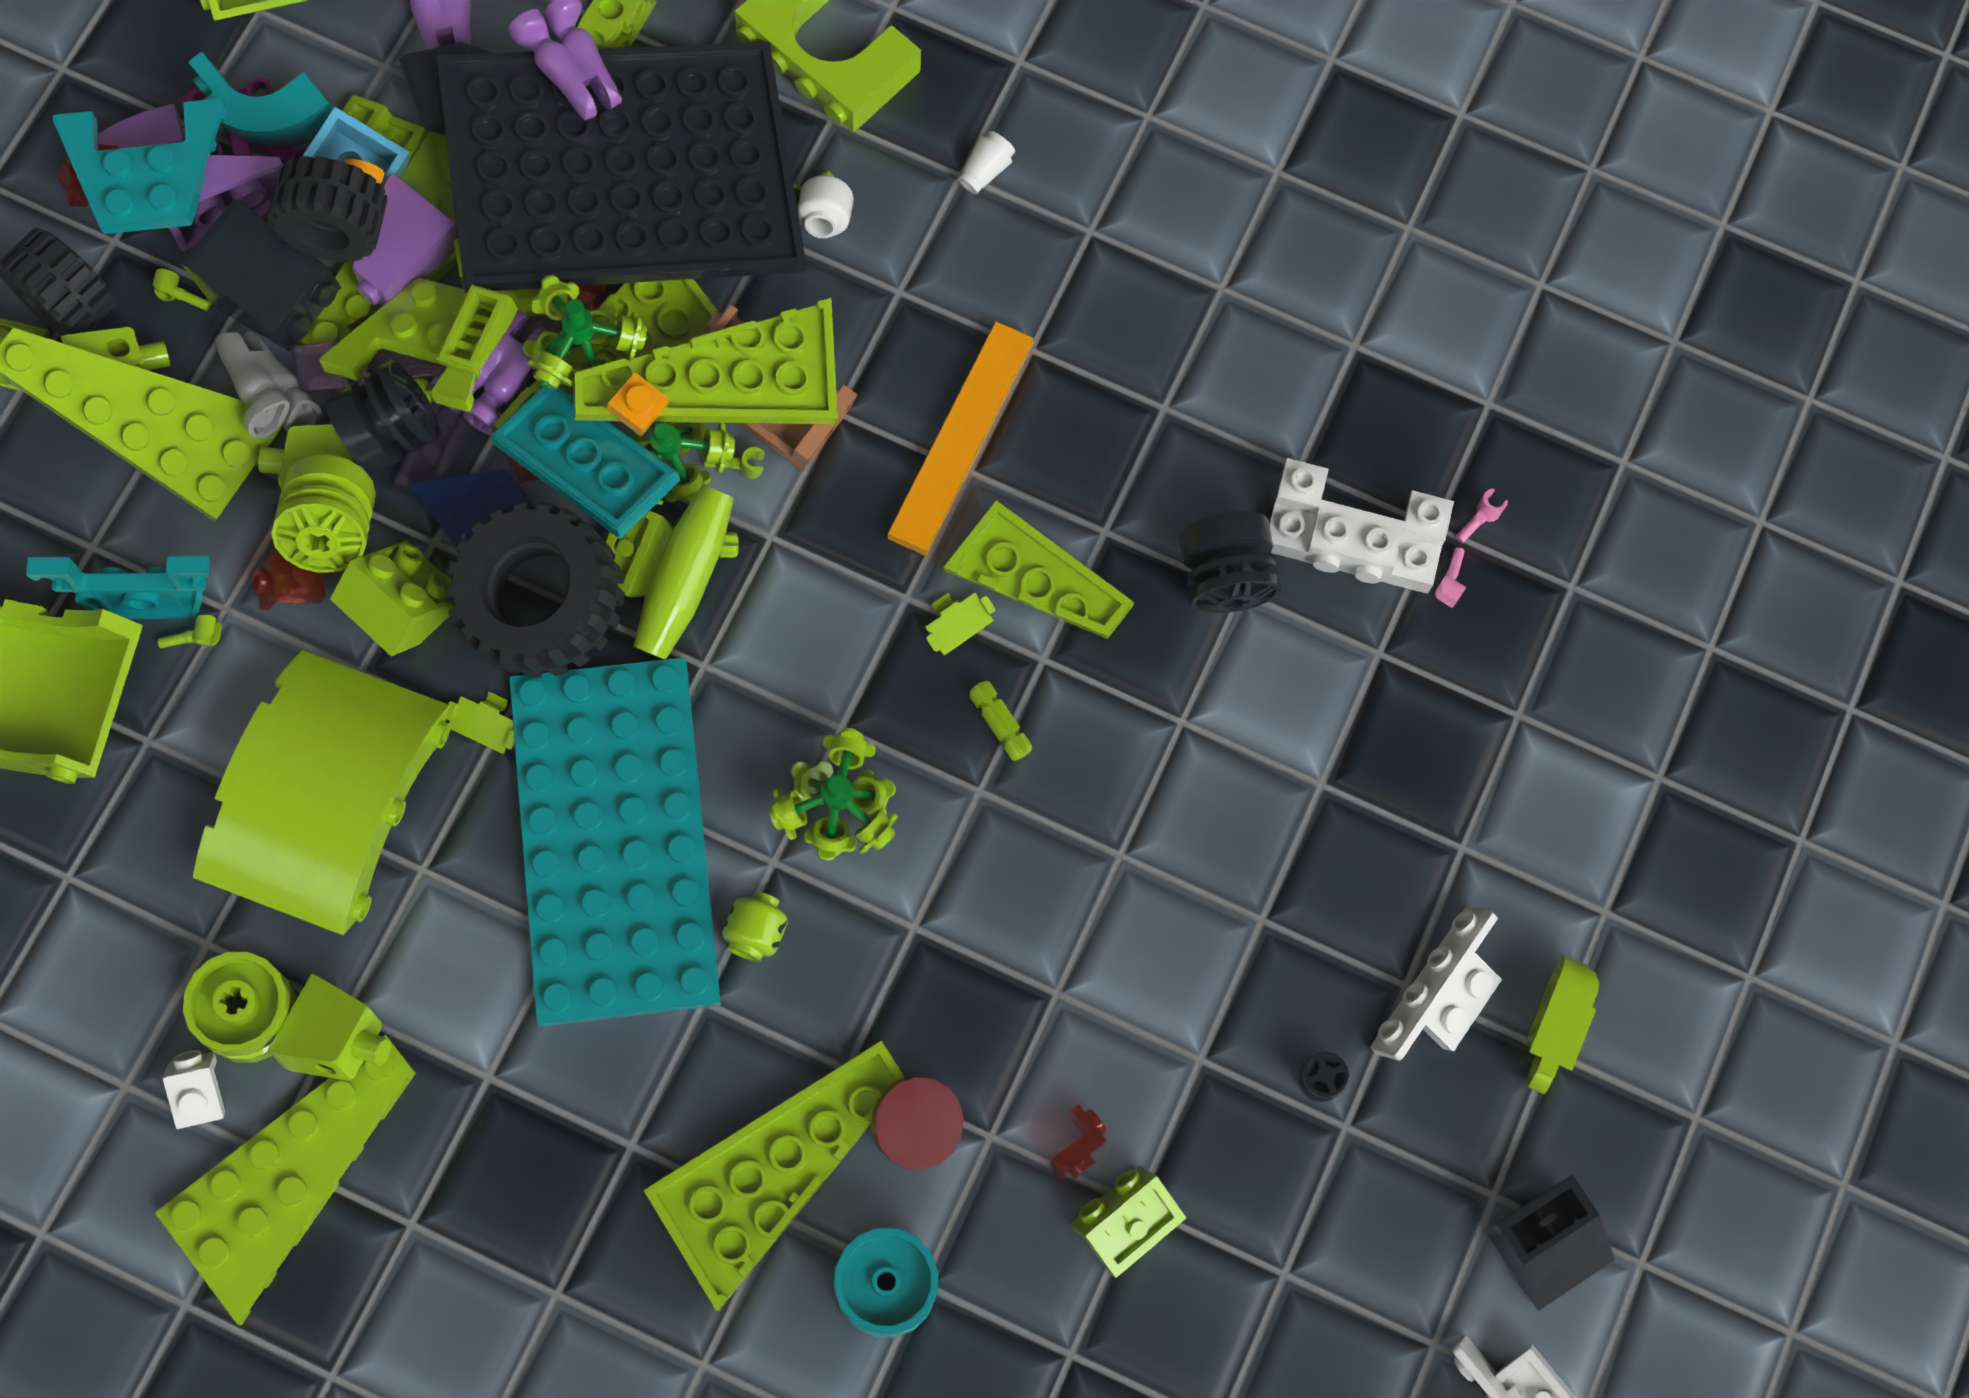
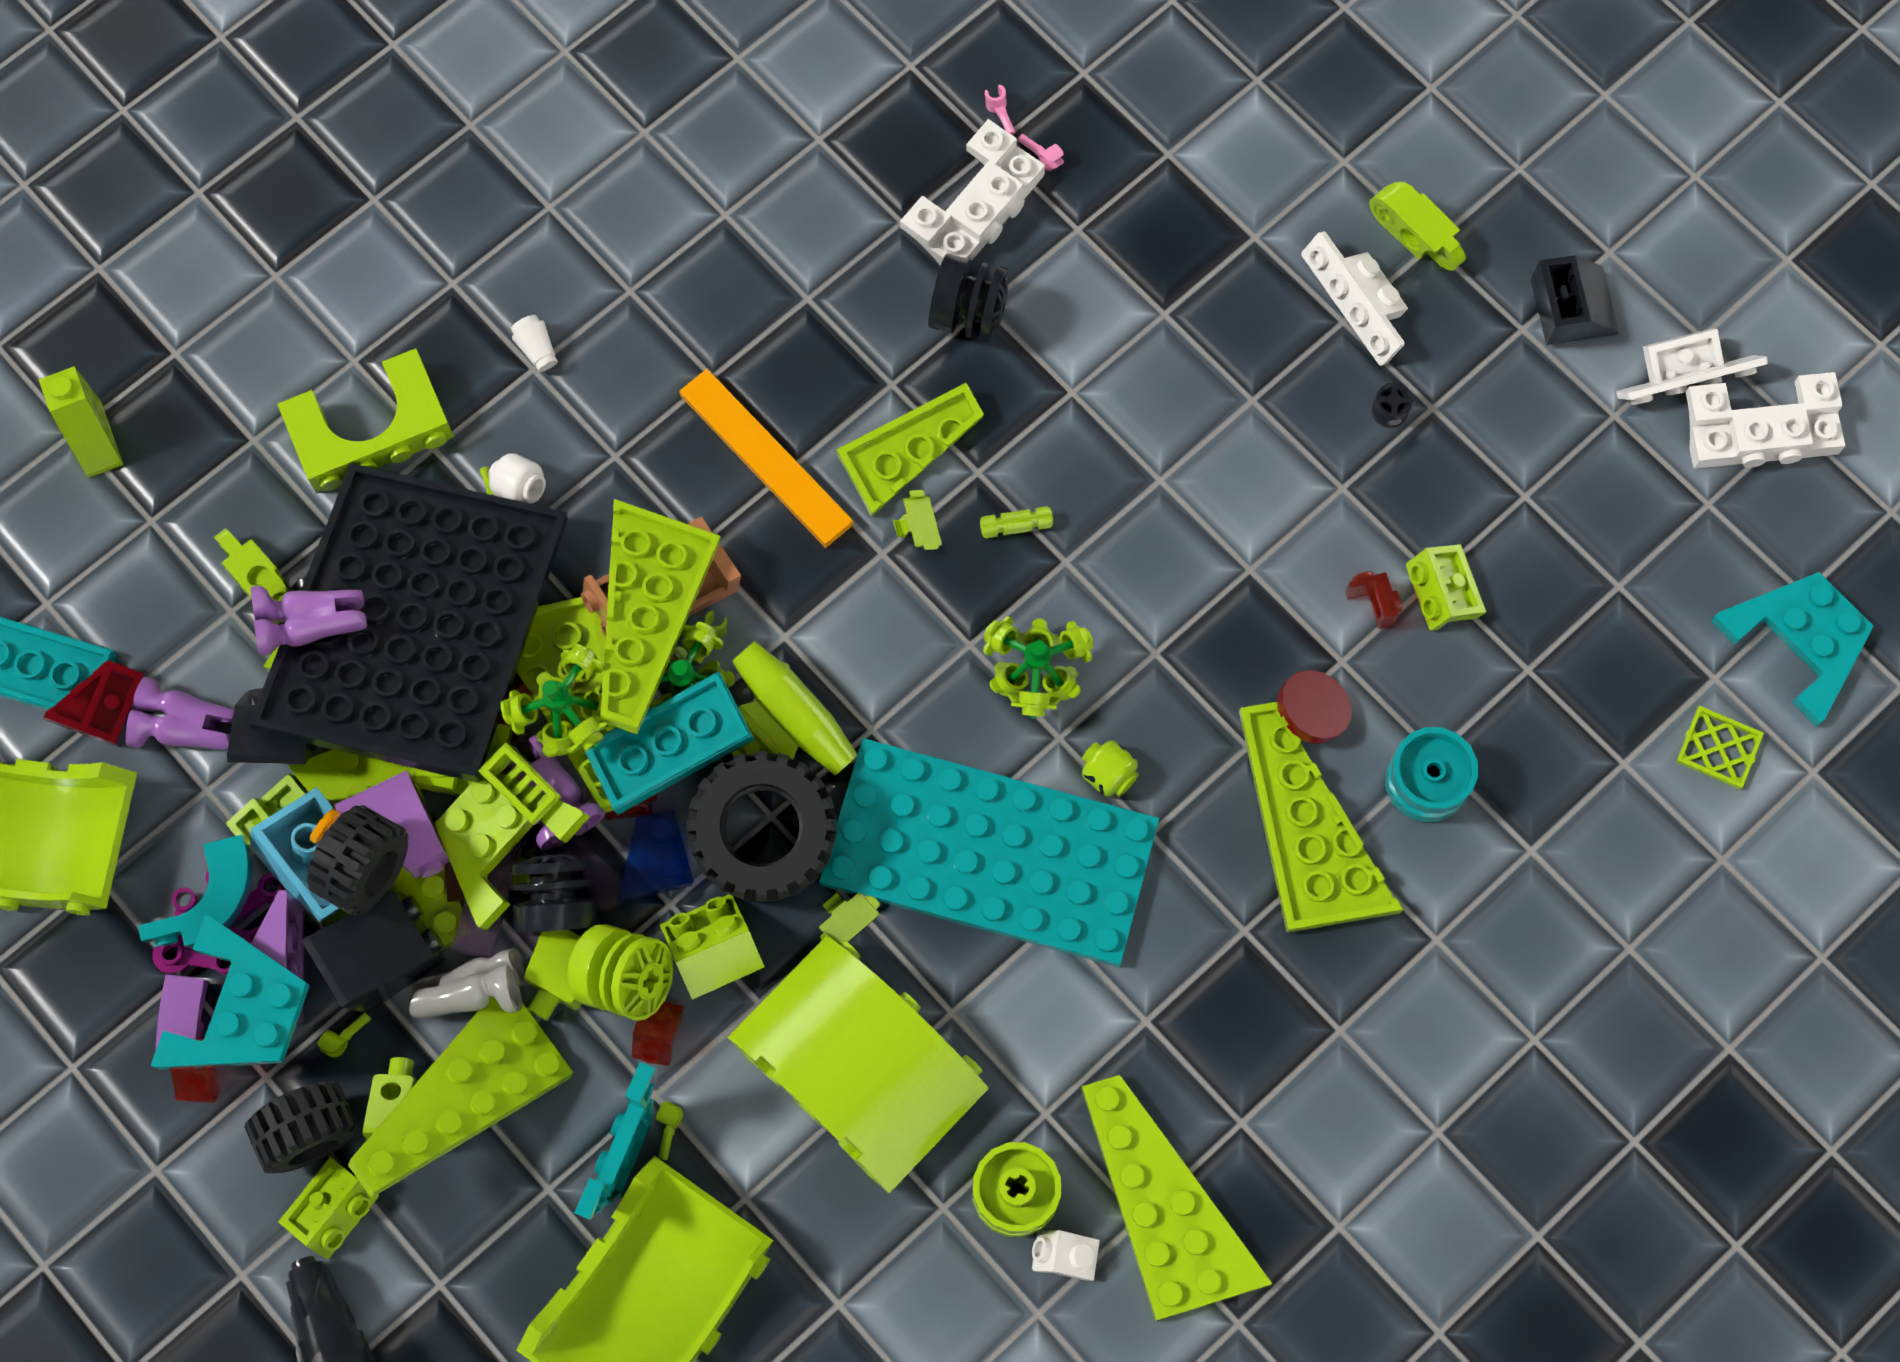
camera: 60 degrees left, 0 degrees up
(329, 1034) = (1069, 1124): lime torso -> none
(637, 404) = (650, 676): light orange plate -> none

